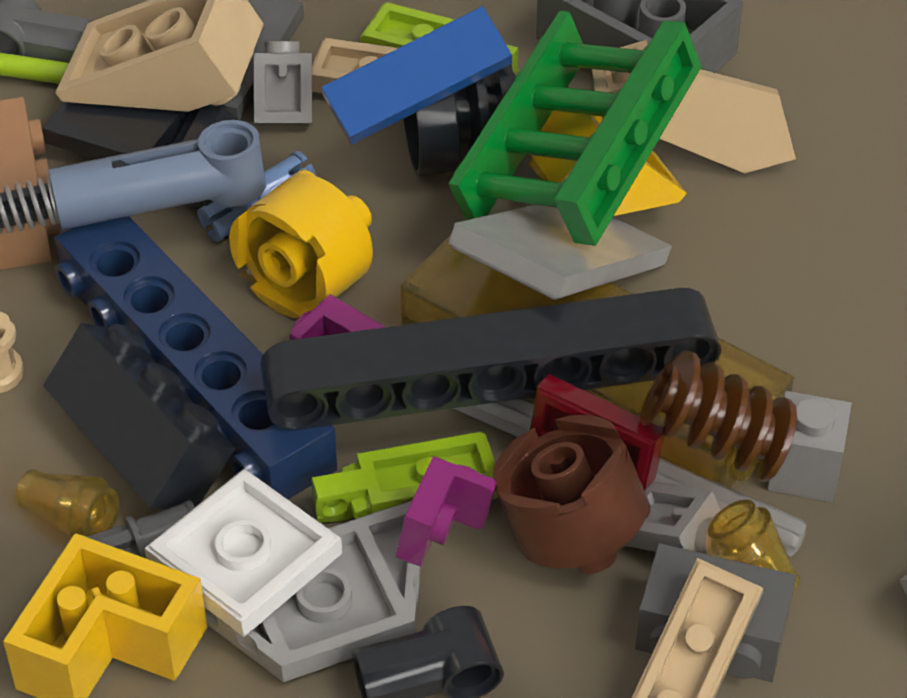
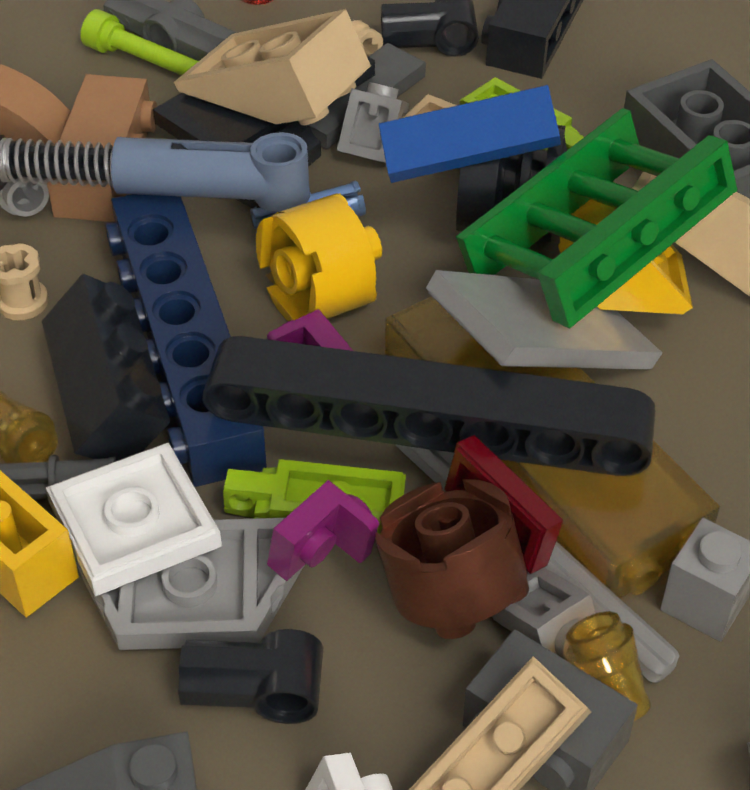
camera: 20 degrees right, 0 degrees up
(723, 410) = (621, 521): reddish brown piece -> none

